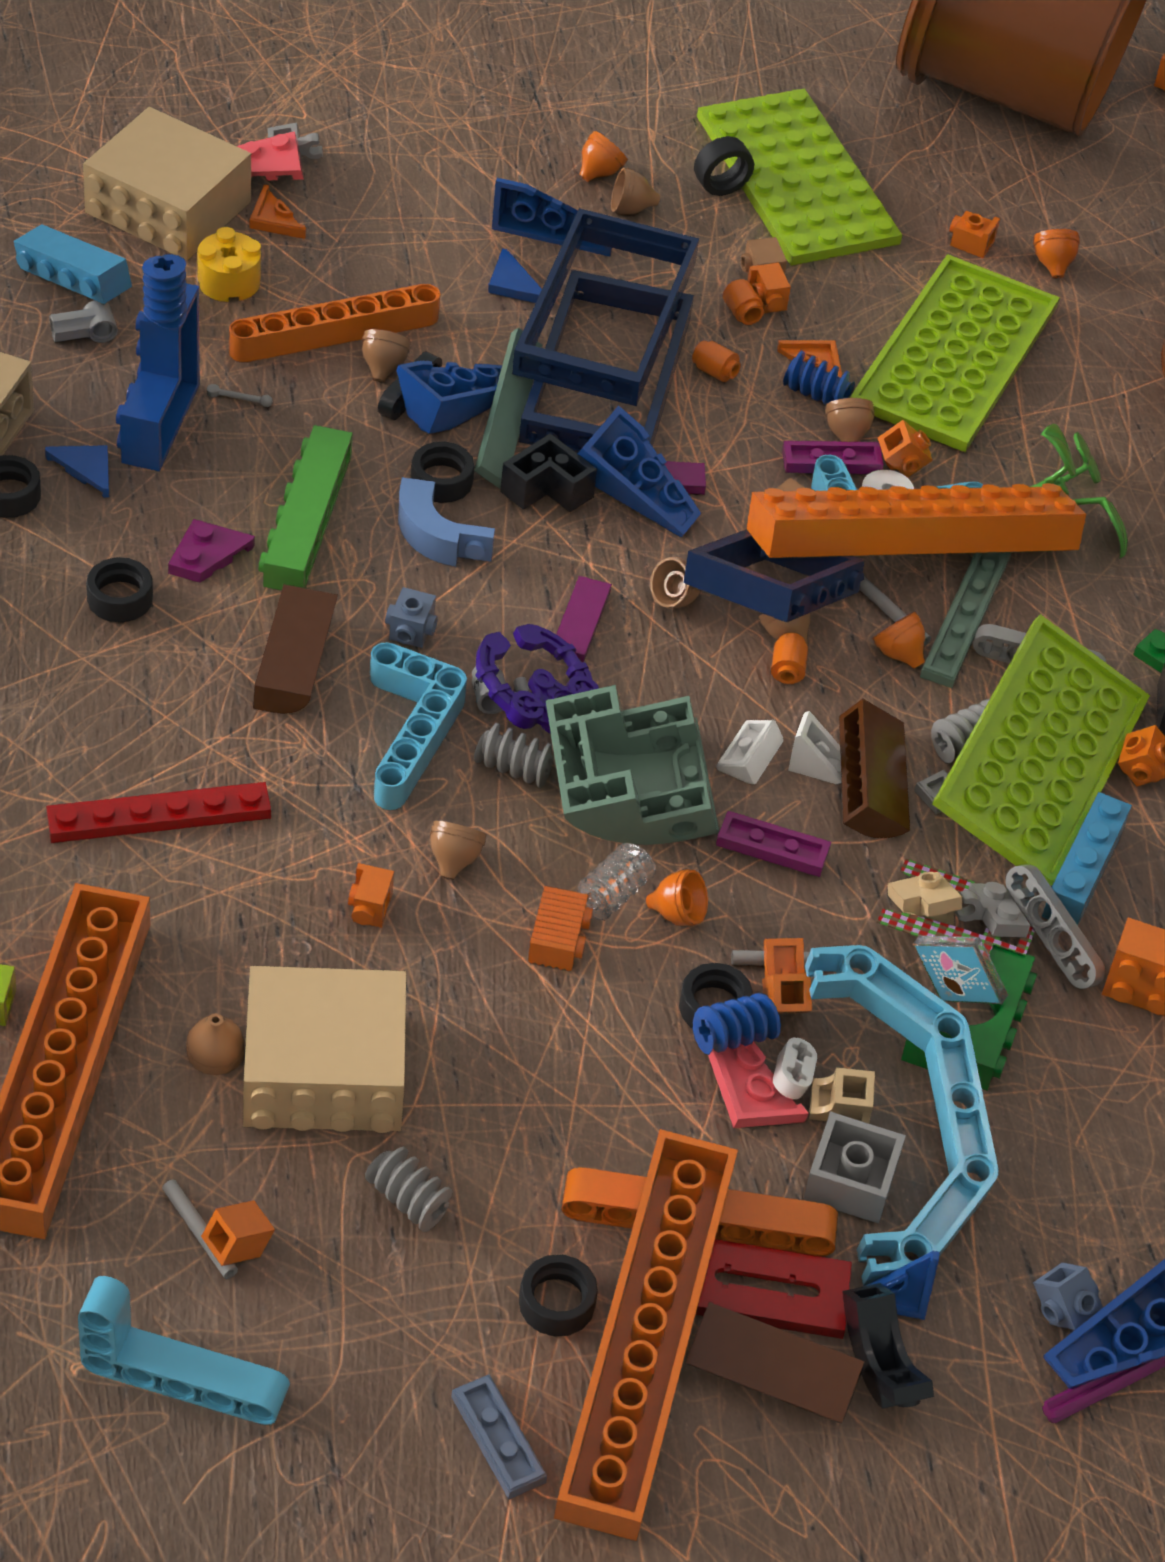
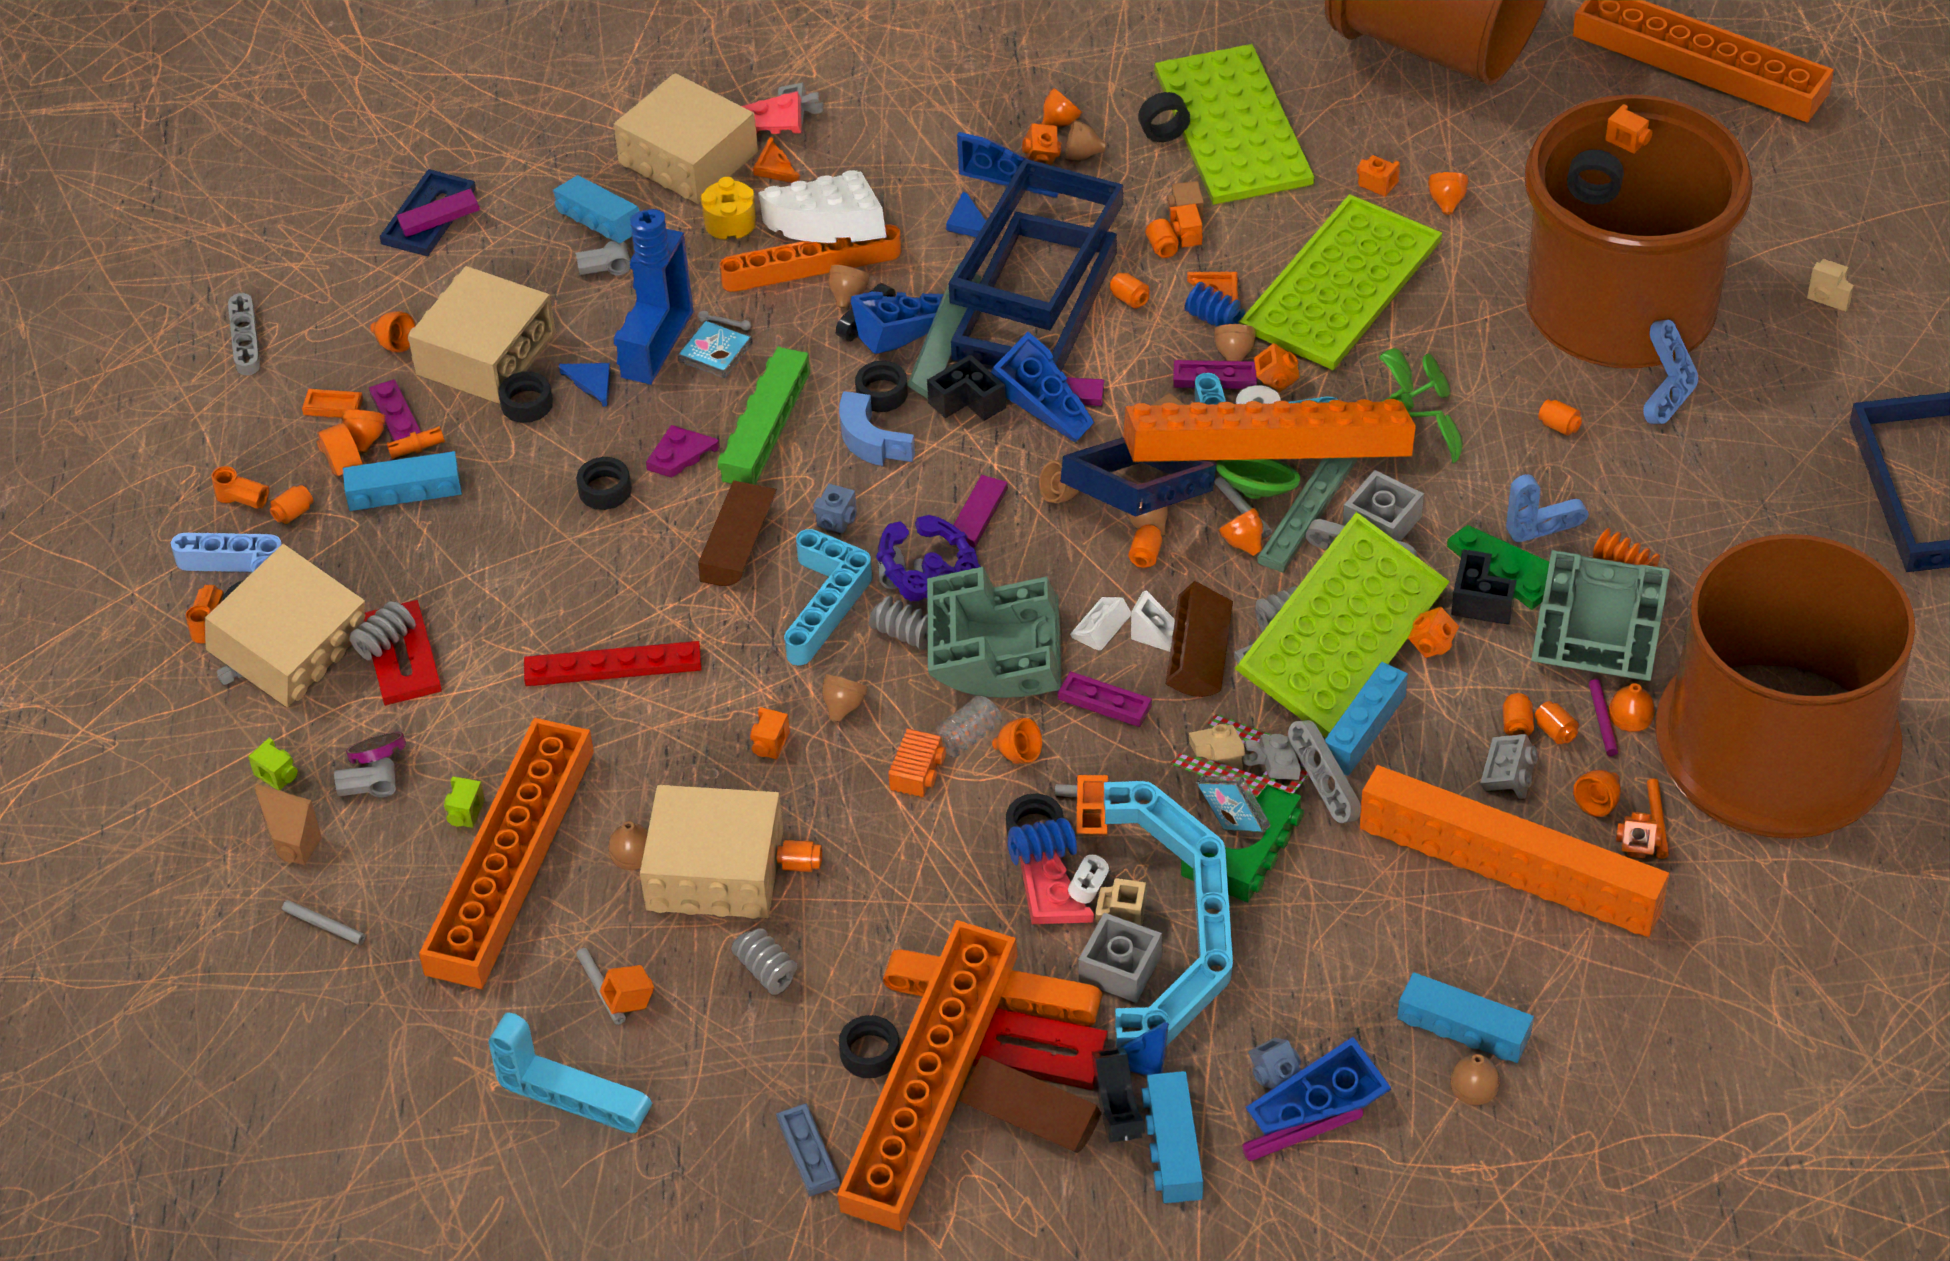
camera: 15 degrees right, 0 degrees up
(233, 429) = (715, 349): none -> tile
(348, 266) = (824, 209): none -> white brick
(432, 1050) = (799, 856): none -> orange brick
(588, 192) = (1041, 144): none -> orange brick
(909, 576) = (1258, 476): none -> bright green dish
(962, 1398) = (1174, 1137): none -> dark azure brick
(1064, 602) = (1386, 504): none -> light grey brick

